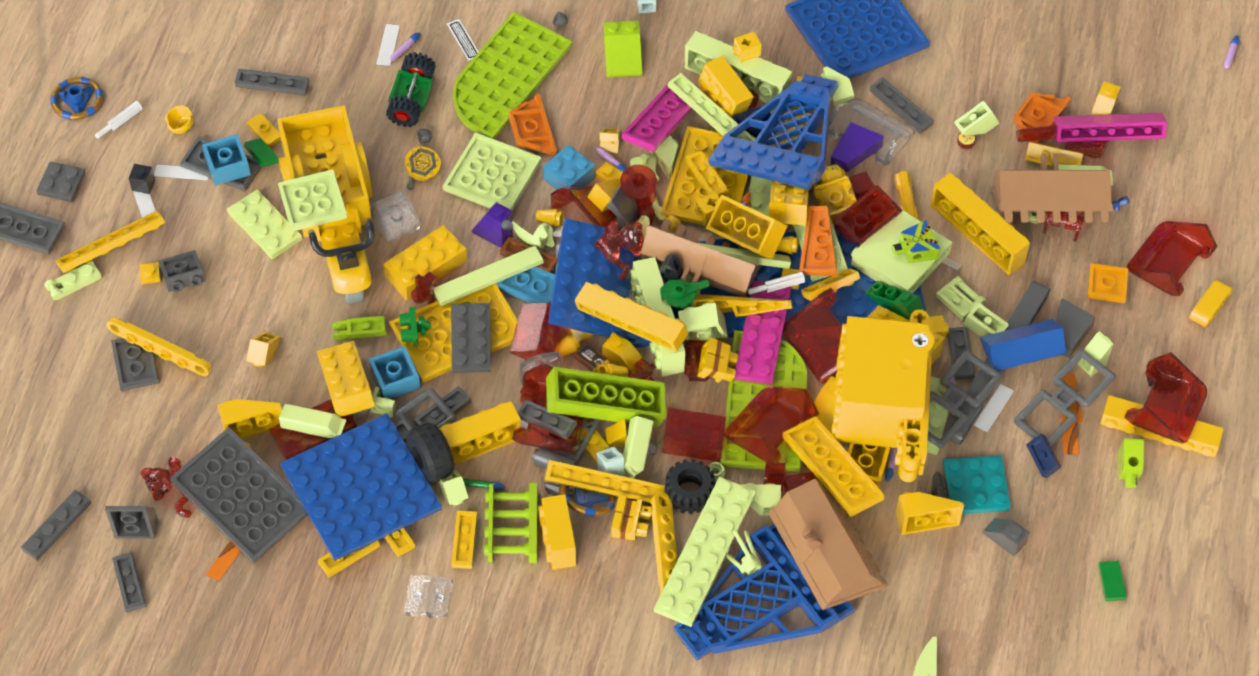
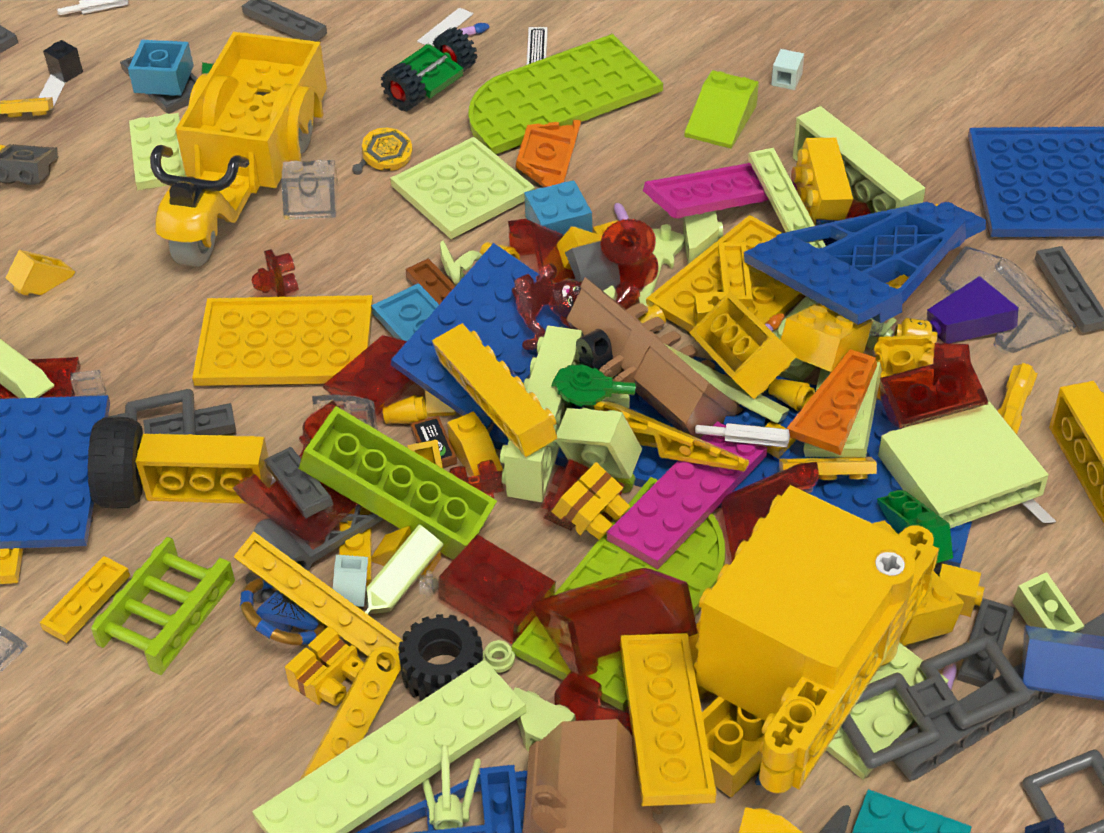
camera: 30 degrees right, 10 degrees down
(177, 172) = (110, 71): white sticker -> none
(179, 119) = (153, 21): yellow hair -> none
(312, 200) = (195, 118): yellowish green plate -> none
(345, 379) = (92, 337): yellow brick -> none
(359, 328) = (170, 294): lime hinge -> none
(382, 405) = (120, 384): yellowish green bracket -> none
(394, 373) = (161, 357): dark azure brick -> none
(409, 319) = (227, 311): green hips -> none
(424, 135) = (413, 123): dark grey hinge -> none
(437, 252) = (317, 246): yellow brick -> none
(453, 488) = (122, 524): yellowish green slope -> none
(470, 338) = (288, 352): dark grey plate -> none
(482, 484) = (182, 546): green piece -> none
(488, 275) = (365, 289): yellowish green tile -> none
(495, 225) = (417, 234): dark purple slope -> none
(557, 532) = (205, 641): yellow brick -> none
(560, 19) = (666, 60): dark grey hinge -> none
(610, 139) = (635, 201): yellow slope -> none
(612, 369) = (435, 454): yellow cone -> none
(747, 47) = (876, 138): yellow brick -> none
(844, 91) = (994, 237): yellowish green slope -> none
(917, 244) = (987, 453): lime torso -> none
(957, 301) = (1018, 563): yellowish green plate -> none
(993, 408) = (999, 747): white sticker -> none

